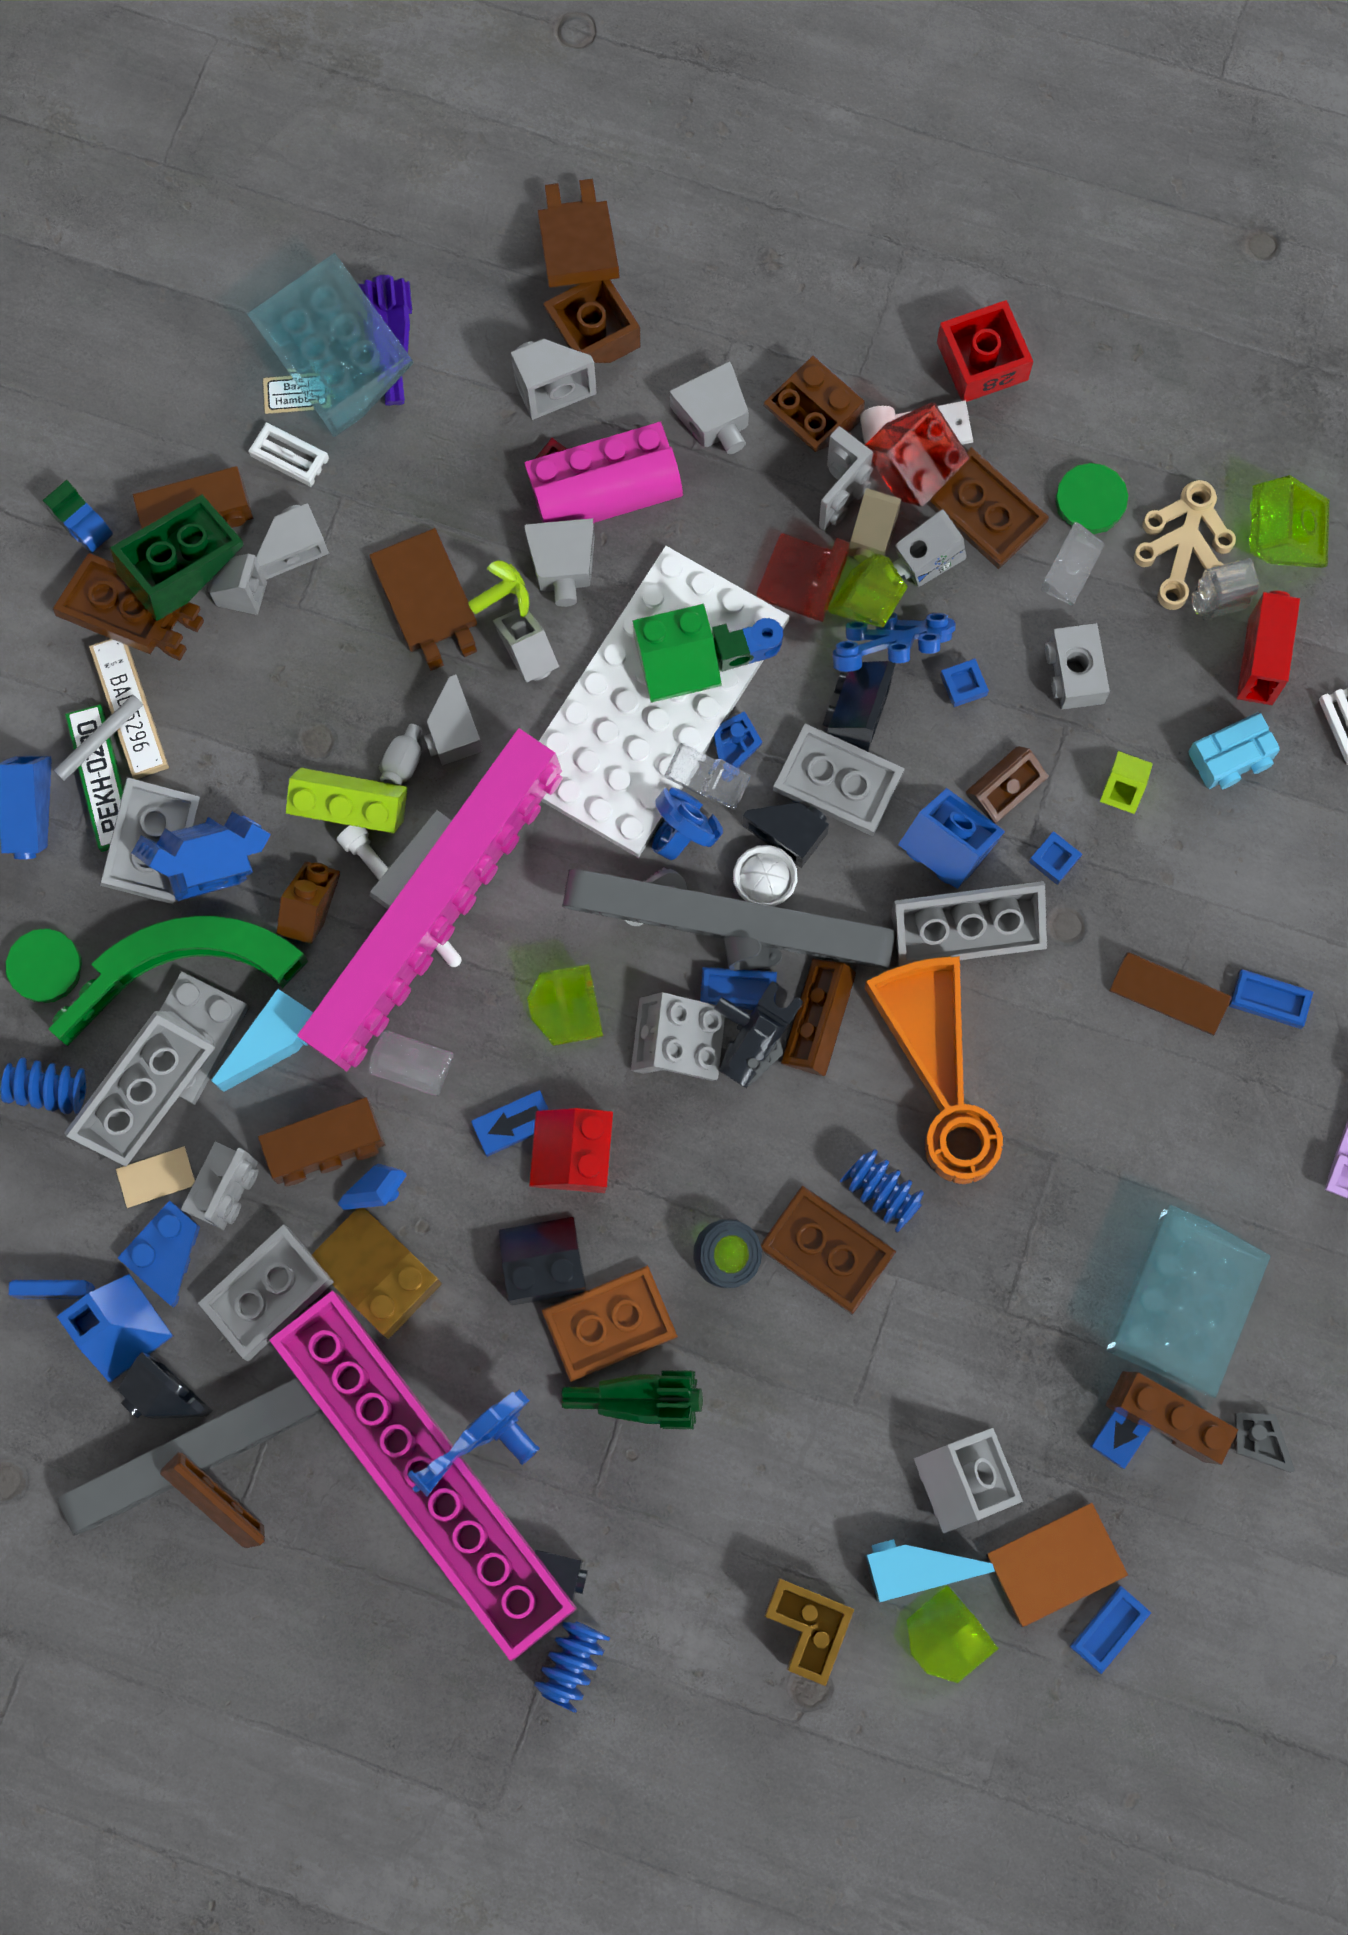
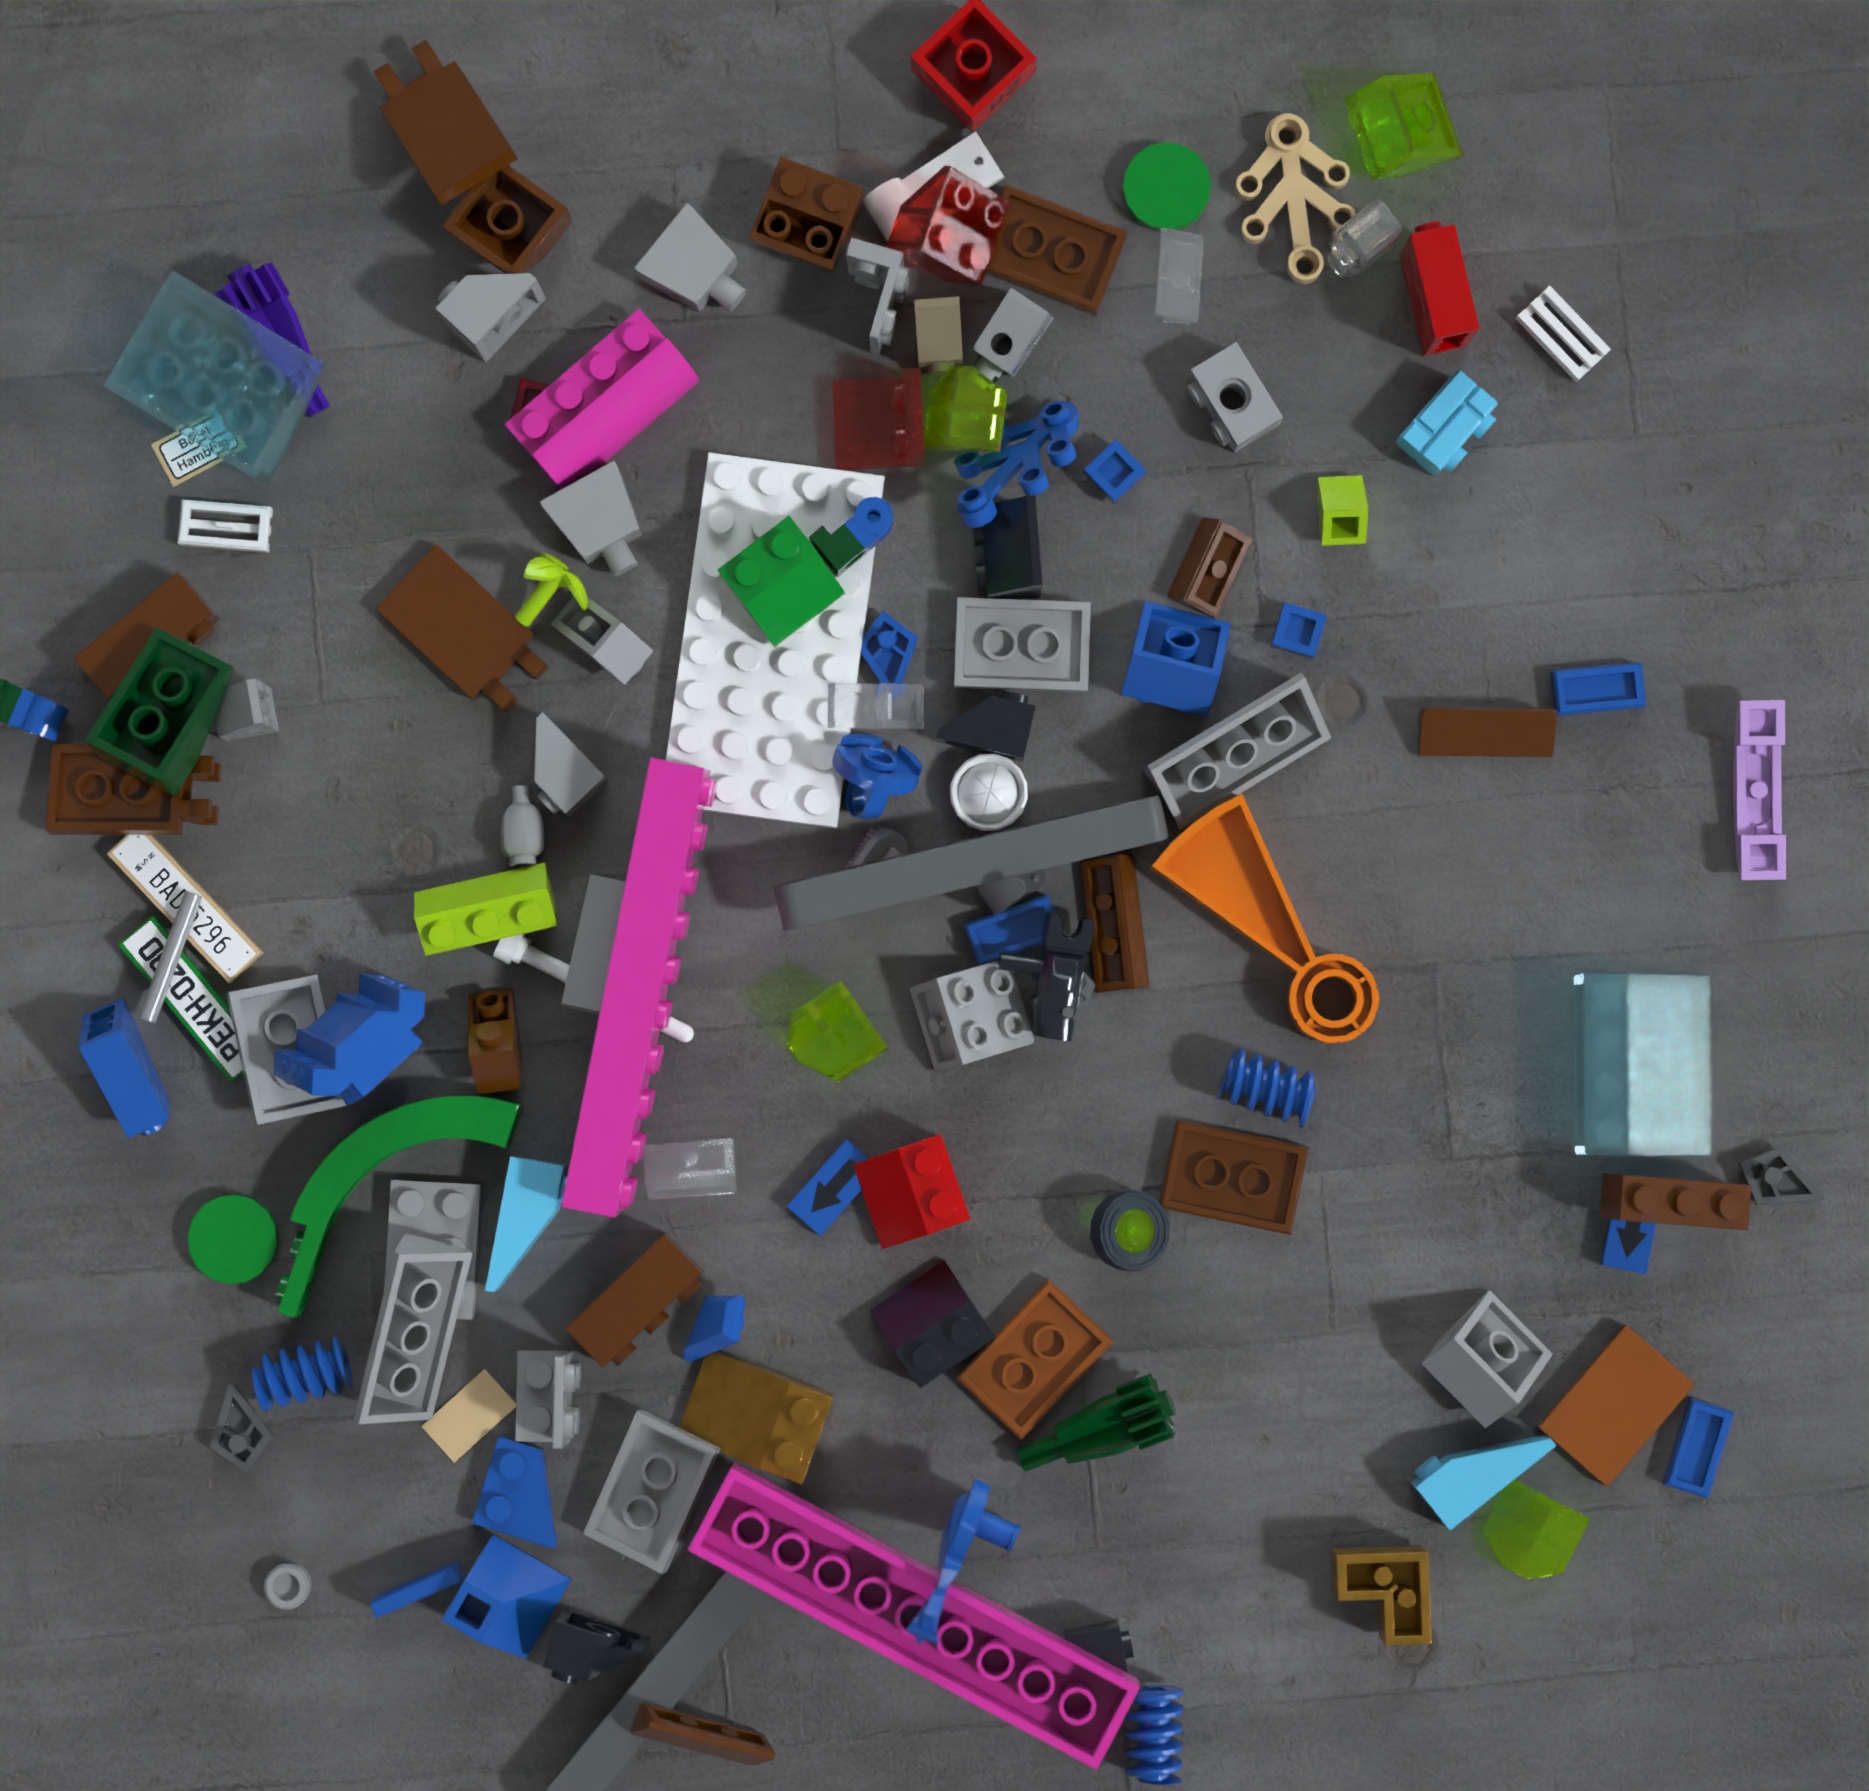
camera: 25 degrees left, 10 degrees up
(291, 541) = (279, 631): light grey slope -> none

